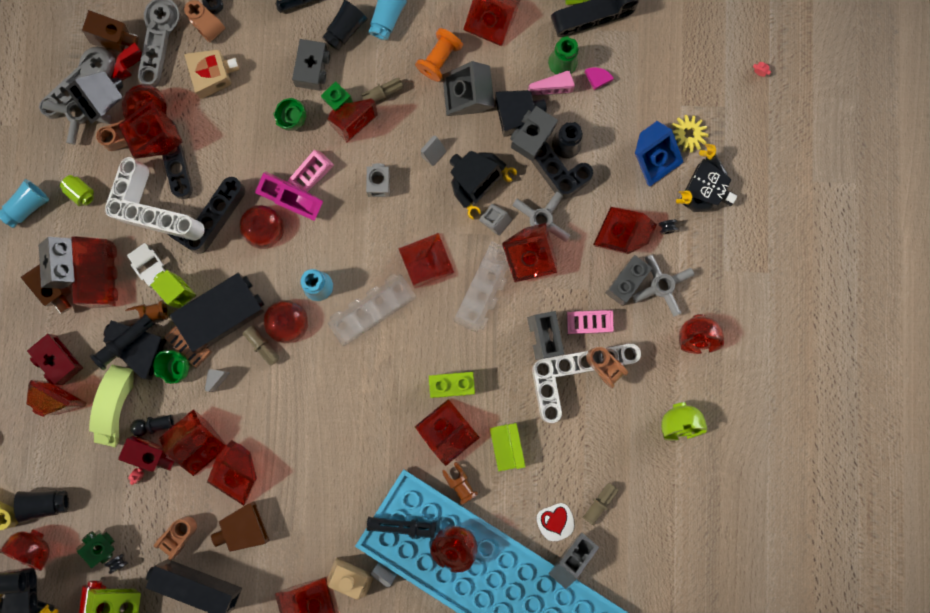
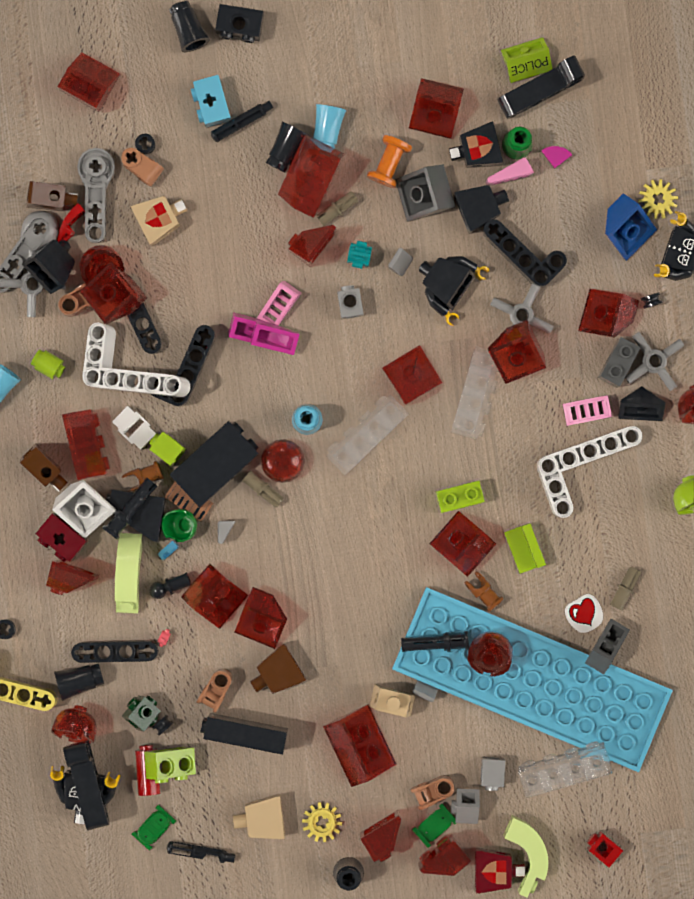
camera: 10 degrees left, 5 degrees up
(56, 262) = (52, 443): dark grey brick -> none
(77, 334) = (82, 508): none -> white slope
(85, 481) = (115, 655): none -> black beam
(136, 453) = (163, 613): dark red torso -> none
(157, 389) = (168, 550): none -> dark azure tile
(261, 226) = (240, 369): clear red cylinder -> none
(290, 114) = (248, 249): green hair -> none
(307, 54) = (253, 182): dark grey brick -> none
(336, 96) = (293, 225): green bracket -> none
(362, 55) = (310, 175): none -> clear red slope
(395, 136) = (359, 254): none -> teal gear
(495, 219) = (475, 321): light grey slope -> none
(526, 56) = (478, 147): none -> black torso
(531, 145) = (509, 221): dark grey brick -> none
(544, 346) = (545, 442): dark grey brick -> none
(565, 146) = (531, 236): black plant -> none
(607, 367) = (610, 453): nougat piece -> none
(643, 327) = (641, 406): none -> black slope

